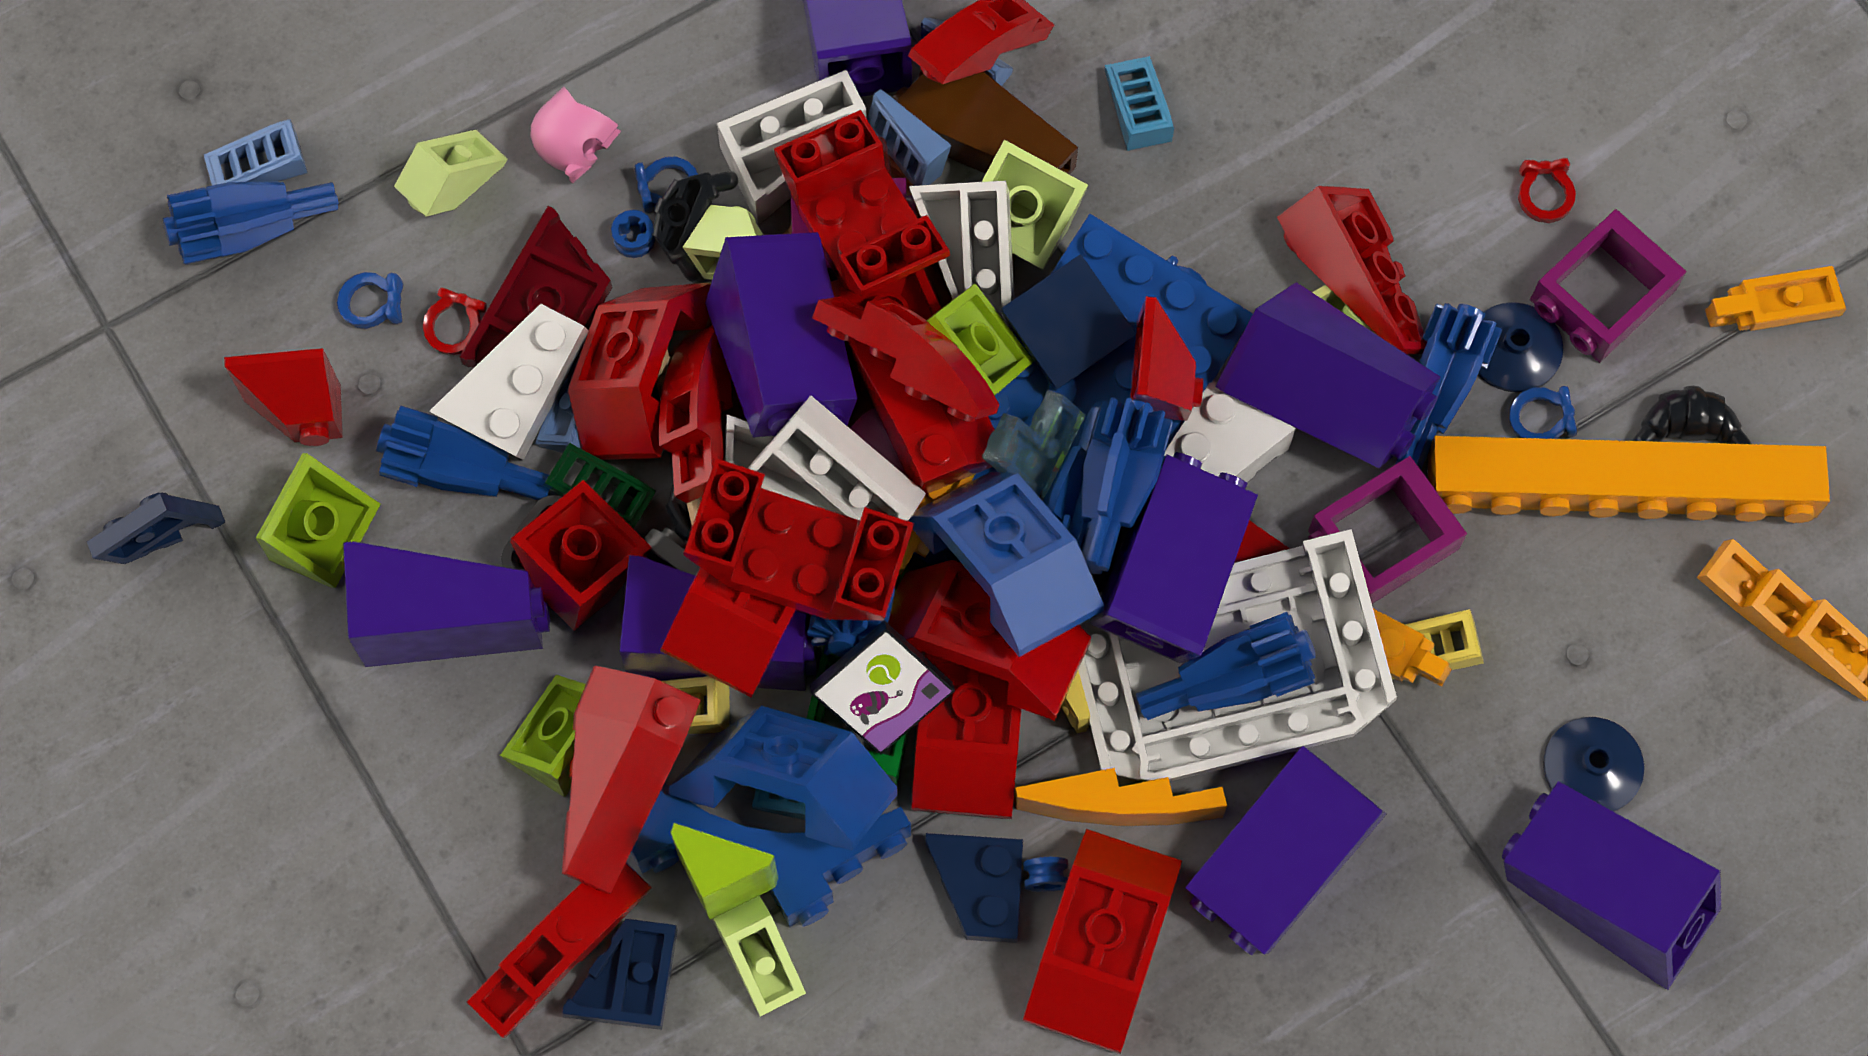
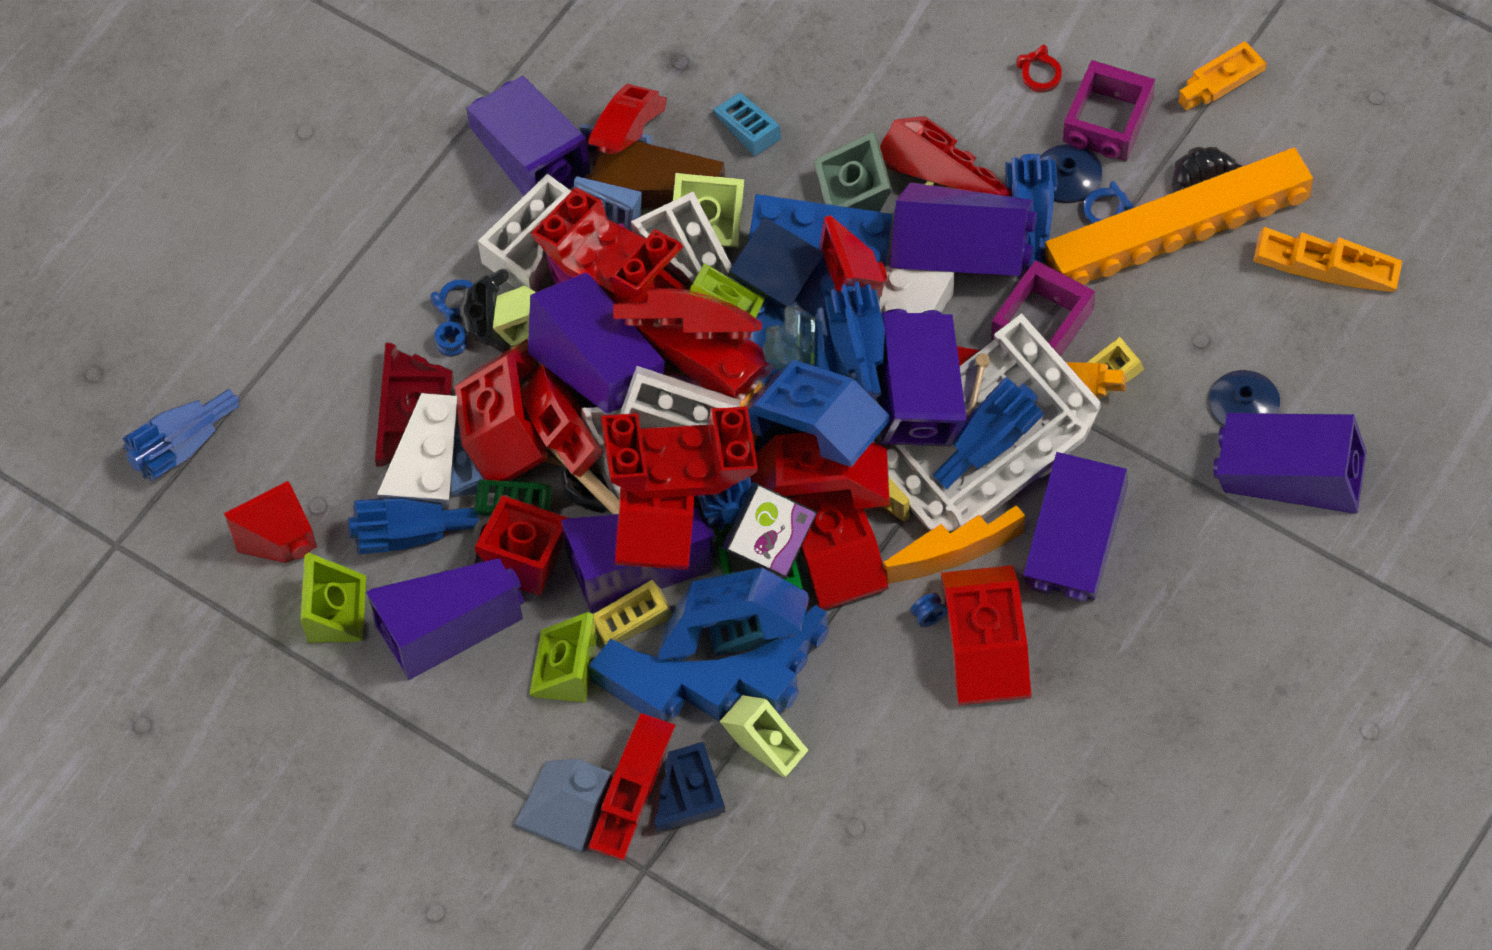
camera: 20 degrees left, 10 degrees down
(151, 527) = (219, 650): dark blue wing -> none
(264, 140) = (159, 389): medium blue slope -> none
(391, 310) = (300, 437): blue piece -> none
(448, 171) = (305, 350): yellowish green slope -> none
(448, 298) = (345, 429): red piece -> none
(468, 926) = (566, 803): none -> sand blue slope
(570, 133) = (378, 290): bright pink helmet -> none
(622, 755) = (620, 644): red wedge -> none
(723, 870) = (720, 681): lime slope -> none
(981, 883) = (888, 634): dark blue wing -> none
(1233, 239) = (855, 175): none -> sand green slope
(1272, 570) = (982, 362): none -> tan hinge

